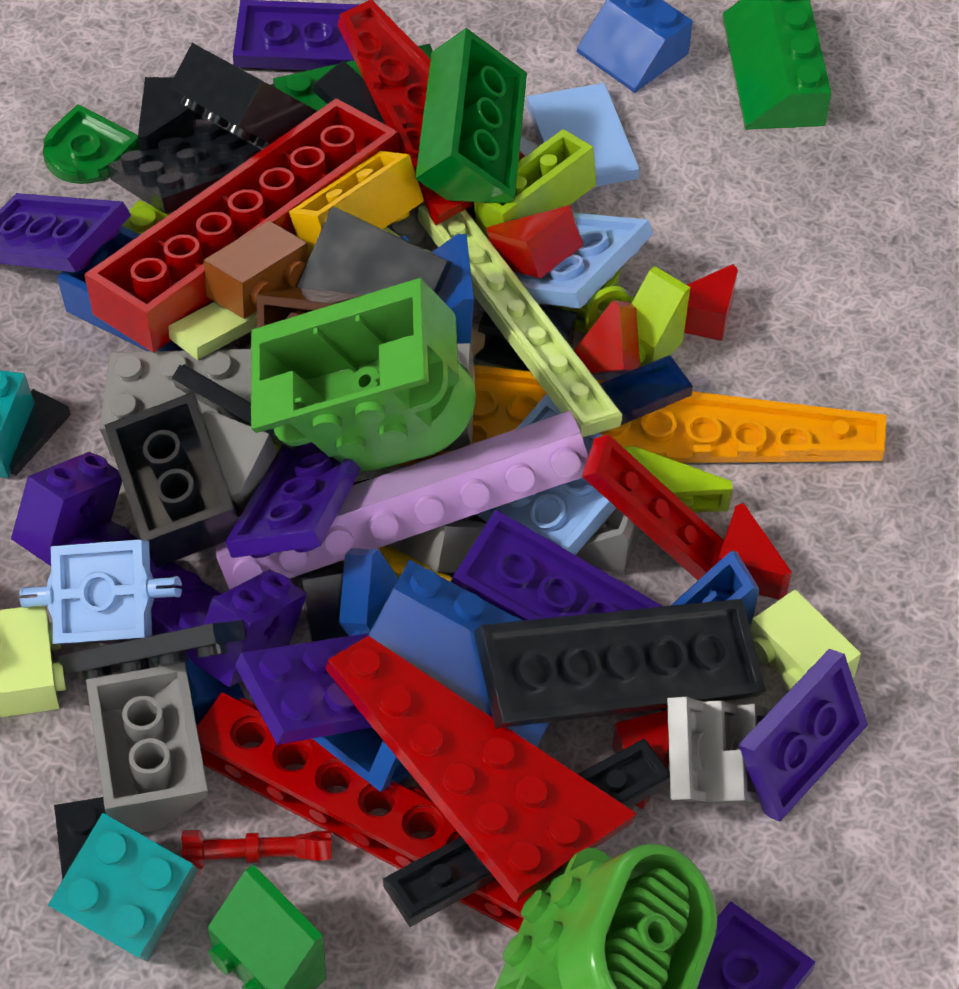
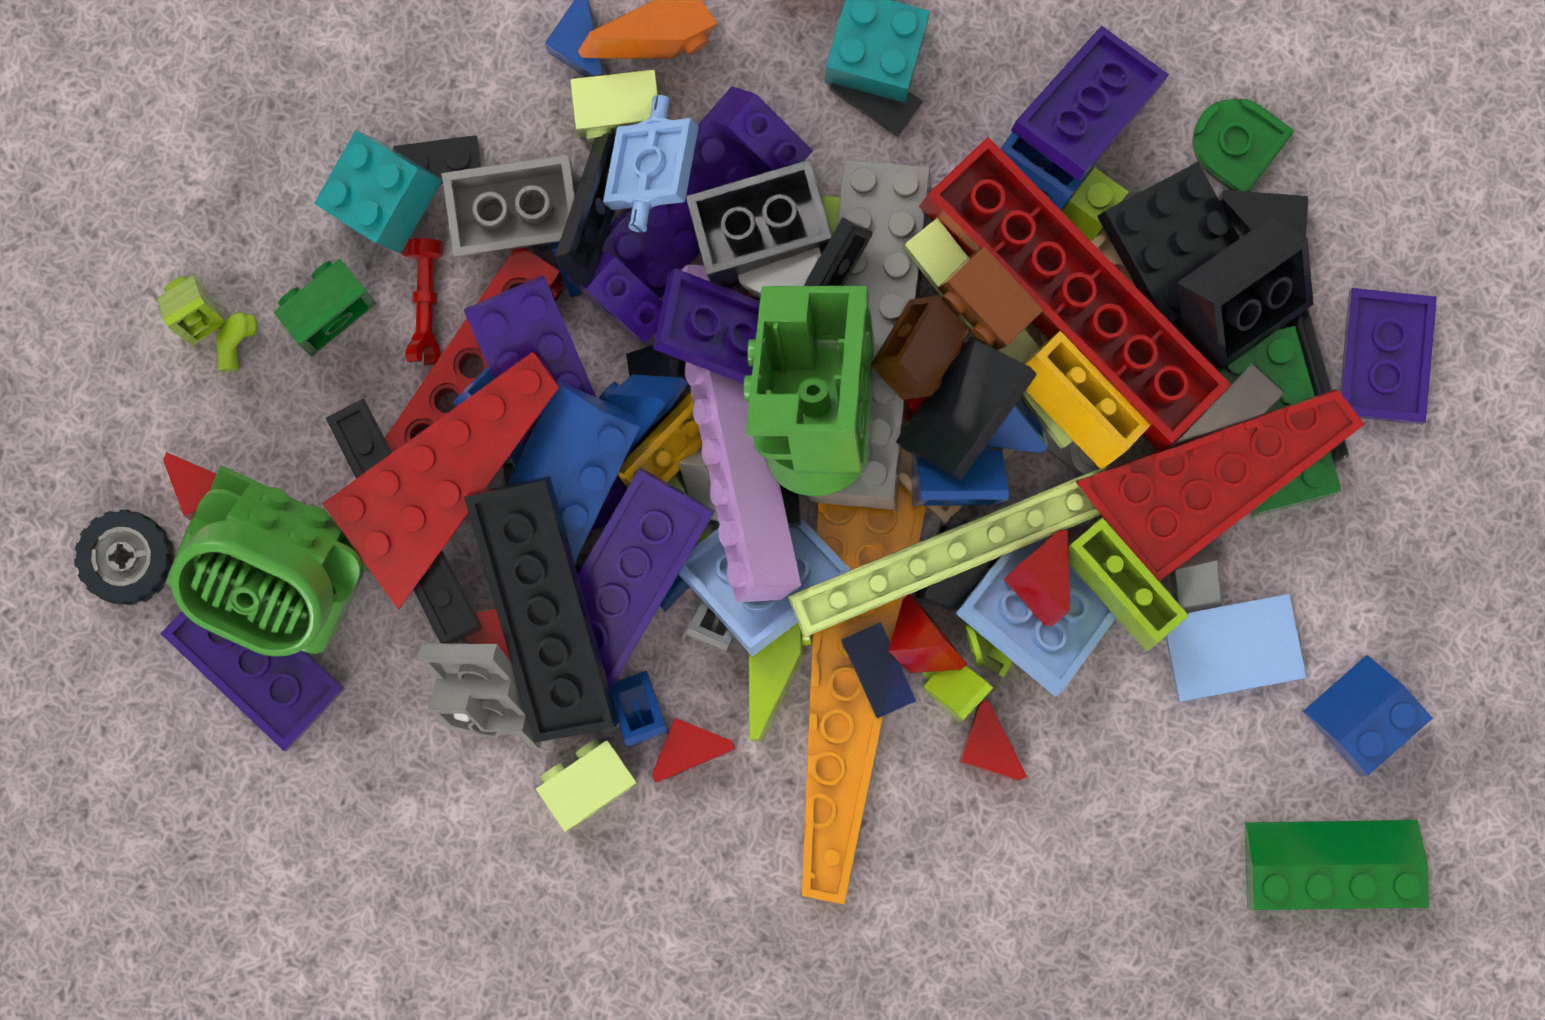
camera: 100 degrees right, 30 degrees up
(471, 122) = (1180, 519): green slope -> none
(652, 506) = (711, 658): red plate -> none
(803, 734) = (486, 768): dark purple plate -> none

